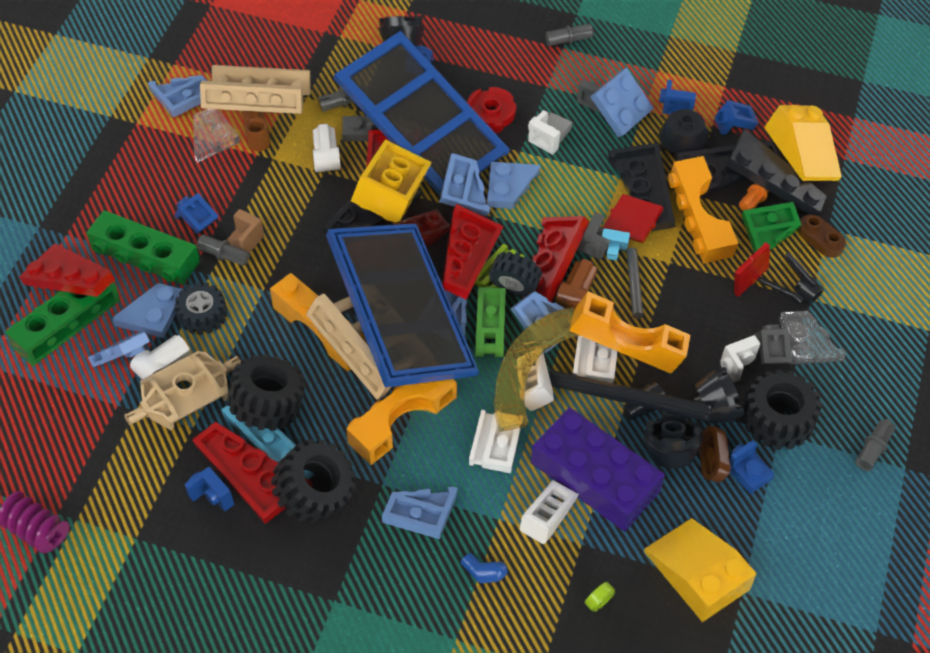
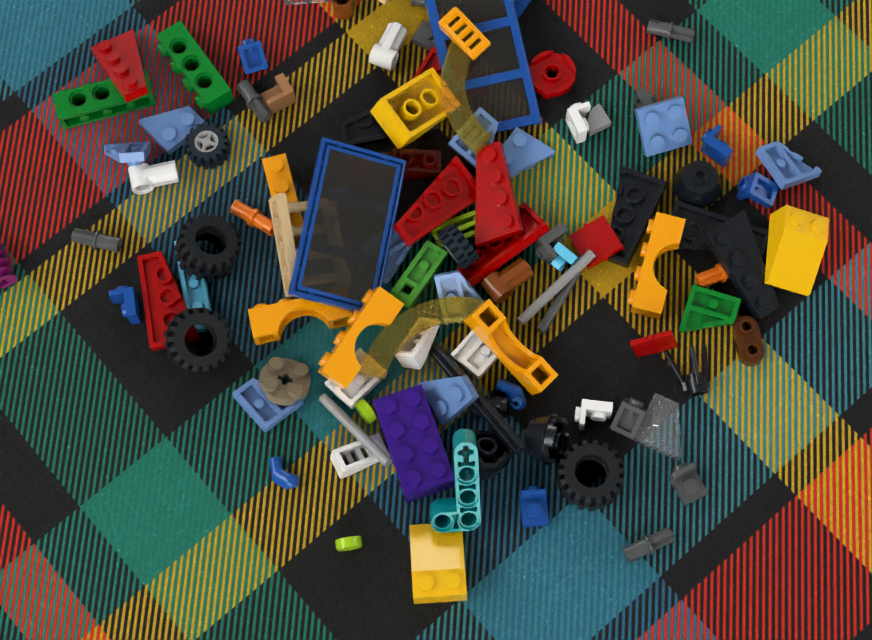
camera: 35 degrees right, 15 degrees up
(135, 448) = (96, 240): none -> dark grey axle
(167, 403) = (137, 219): tan plate -> none
(292, 349) = (252, 217): none -> orange pin
(394, 83) = (450, 18): none -> light orange slope
(414, 475) = (289, 369): none -> dark tan plate
(424, 151) = (455, 98): none -> clear yellow tile
(478, 425) = (341, 363): none -> light orange arch
(520, 222) = (496, 204): none -> red wing
(528, 464) = (365, 411): none -> lime tile
(531, 486) = (355, 430): none -> light grey bar
(604, 403) = (449, 396): none -> medium blue wing
(627, 266) = (561, 282): none -> light grey bar
(652, 376) = (514, 392): none -> blue arm
(685, 475) = (463, 502): none -> teal beam
(714, 454) = (508, 488): reddish brown plate -> none
(742, 89) = (785, 165): none -> medium blue wing
(866, 375) = (687, 483): none -> dark grey bracket

